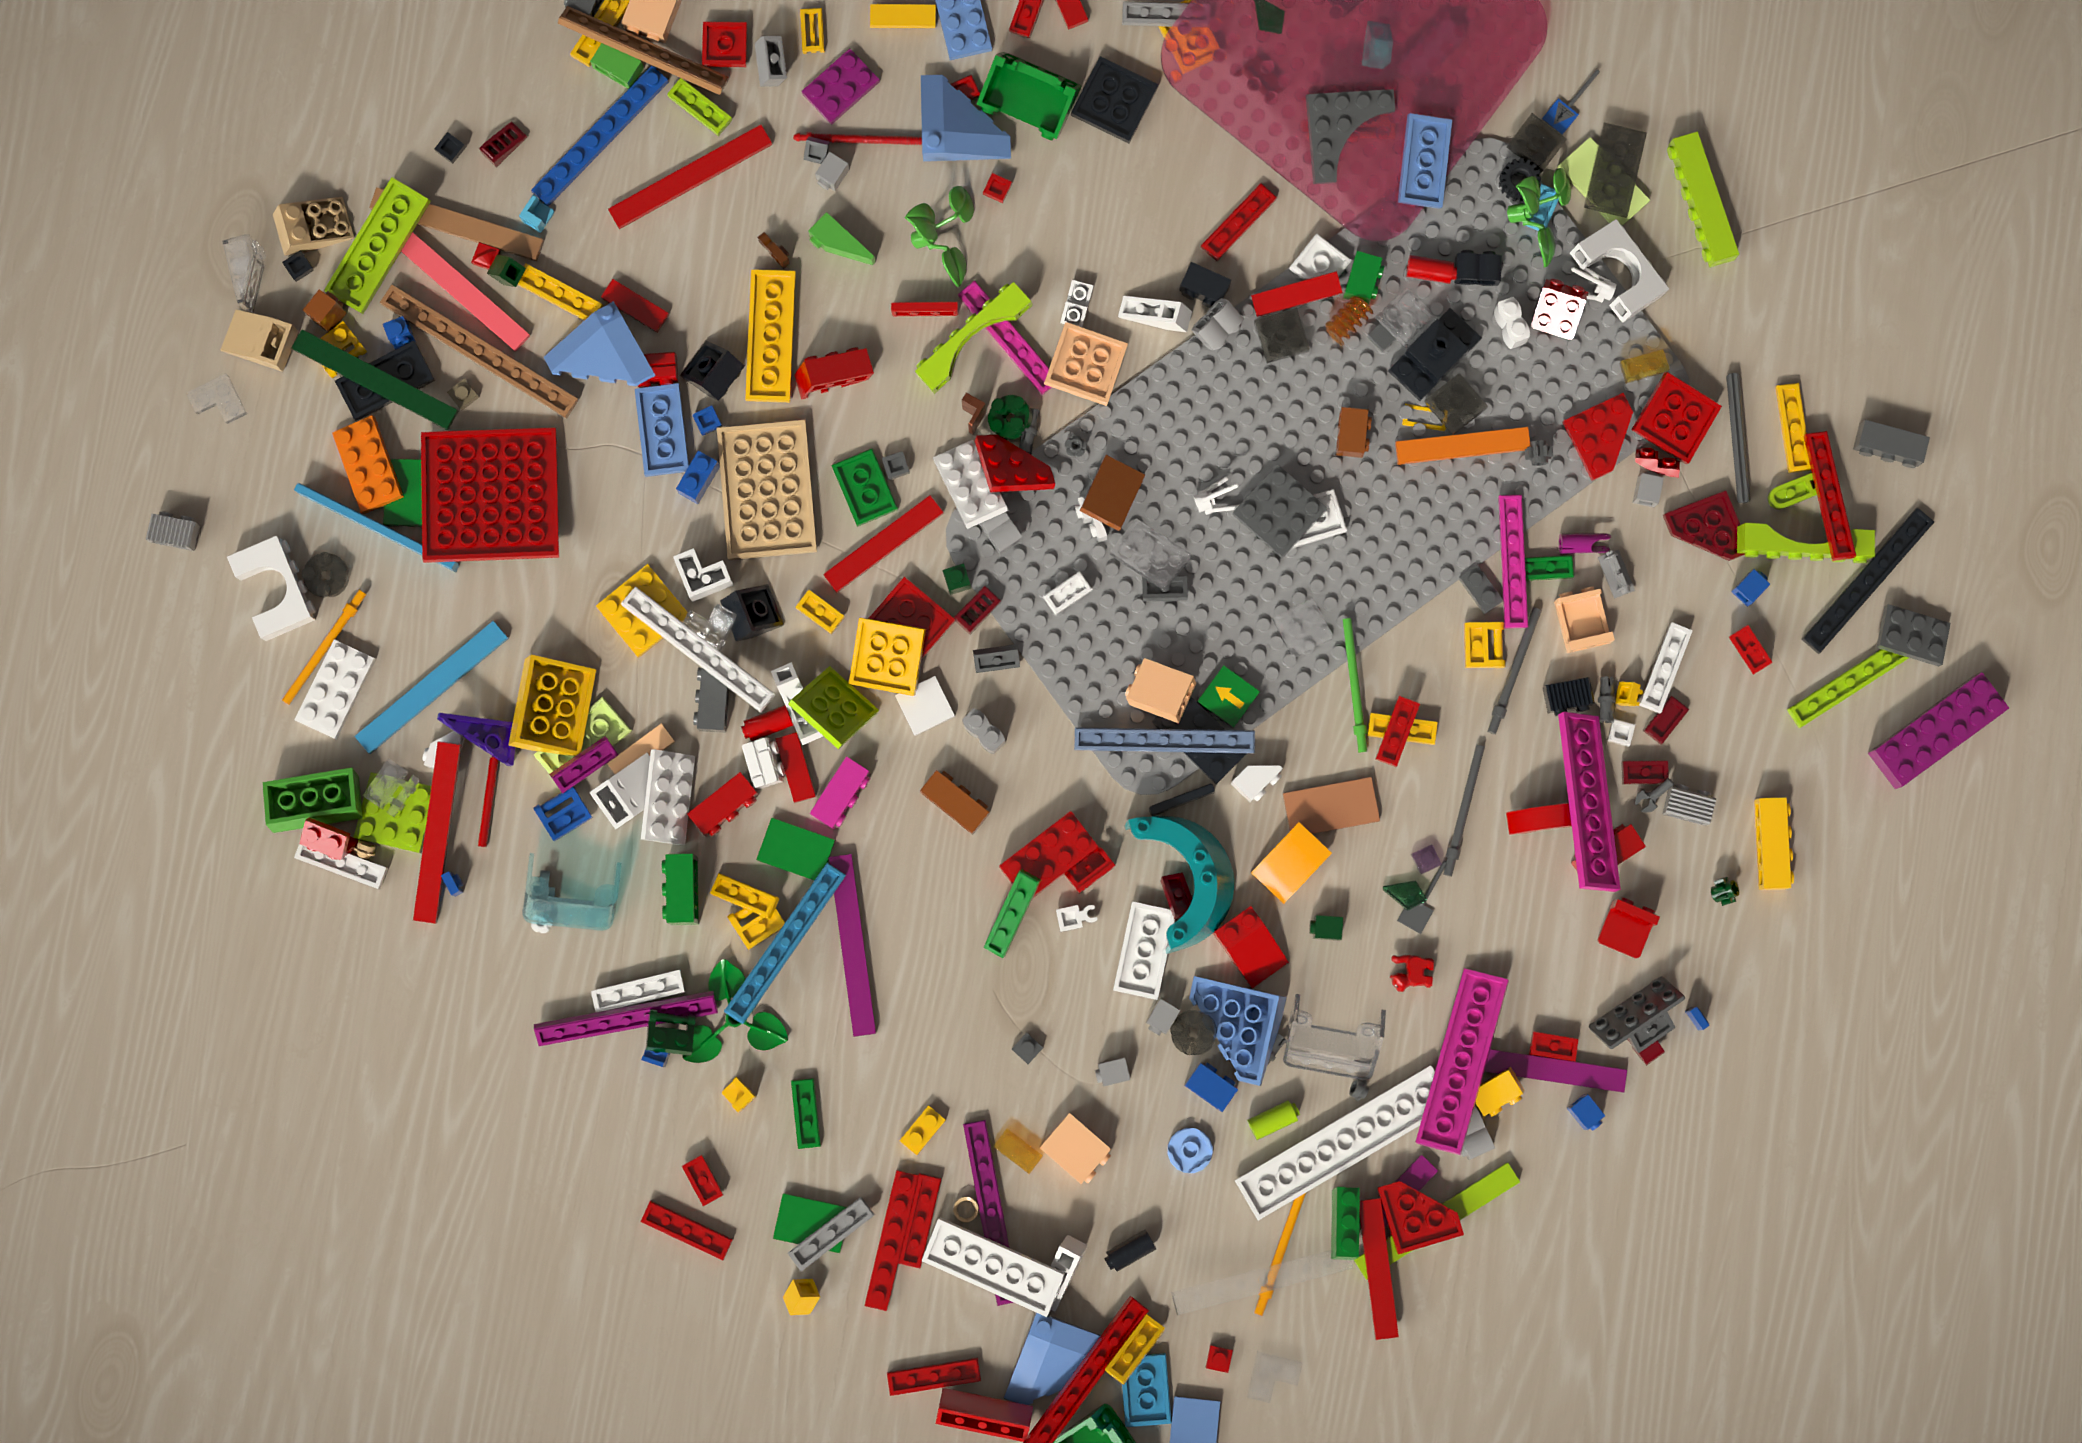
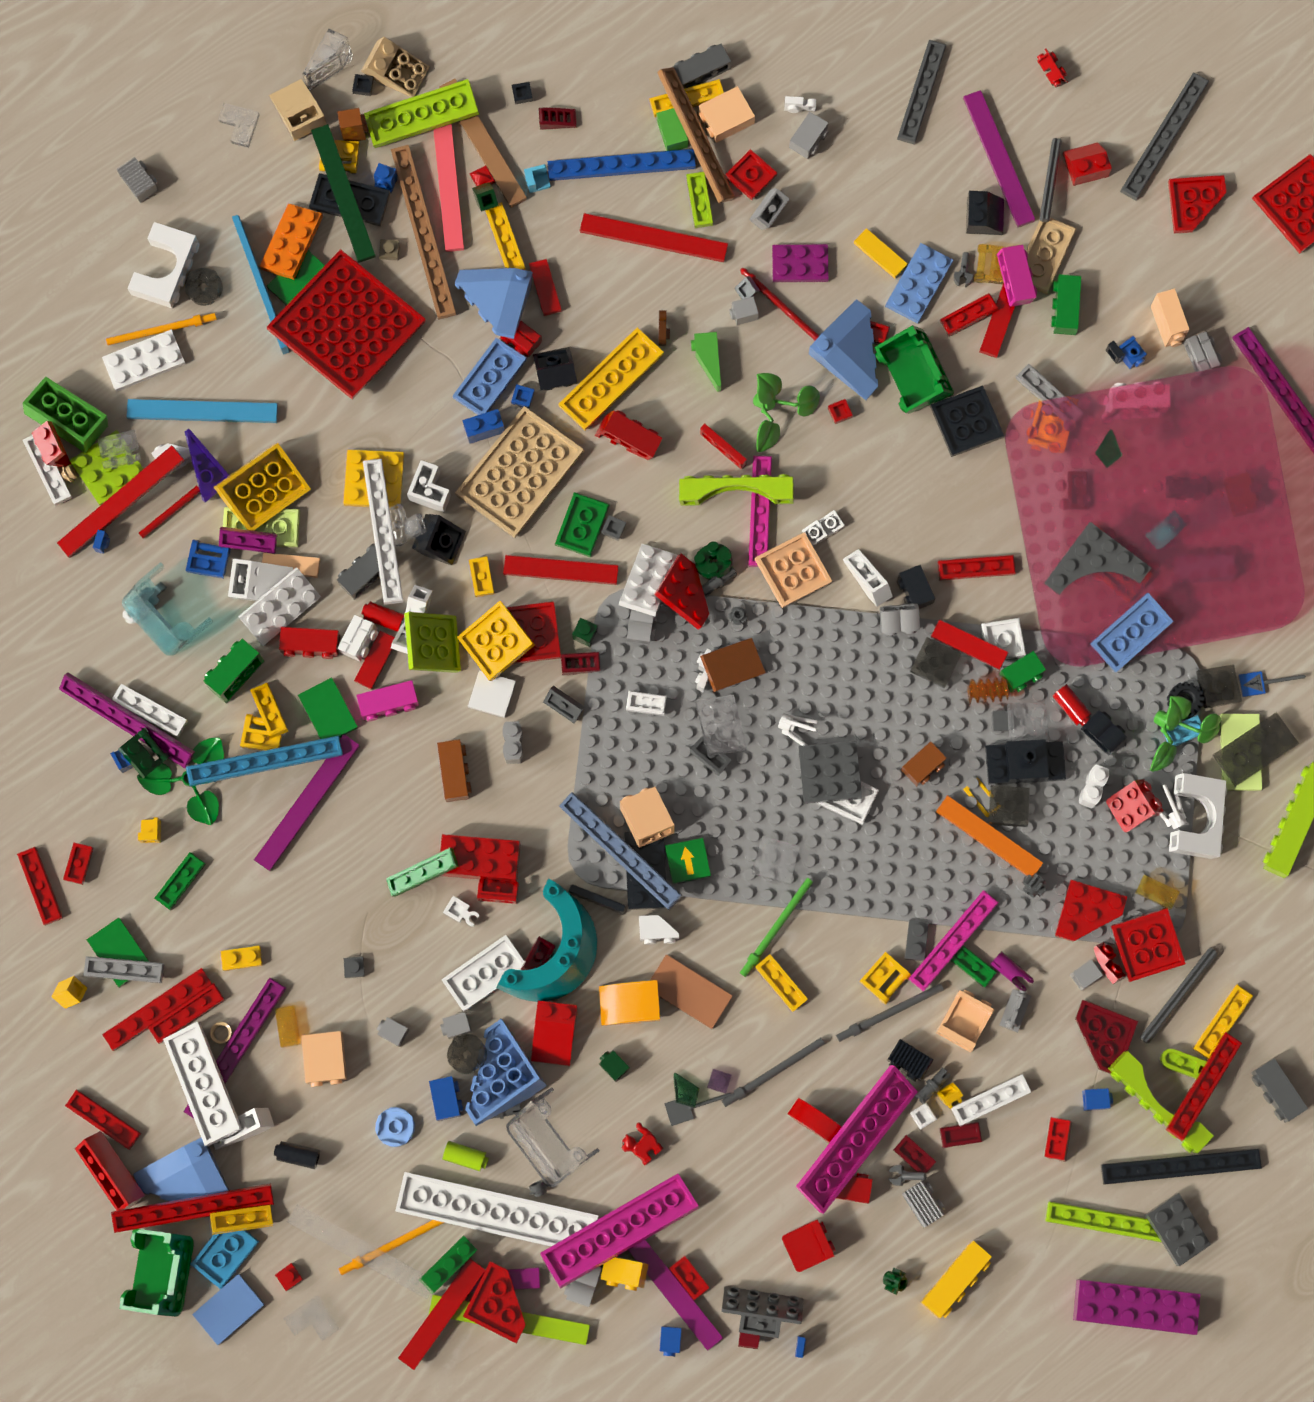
camera: 45 degrees right, 5 degrees down
(813, 48) = (805, 225): yellow tile -> none
(974, 407) = (693, 541): copper panel -> none
(1397, 731) = (775, 980): red plate -> none

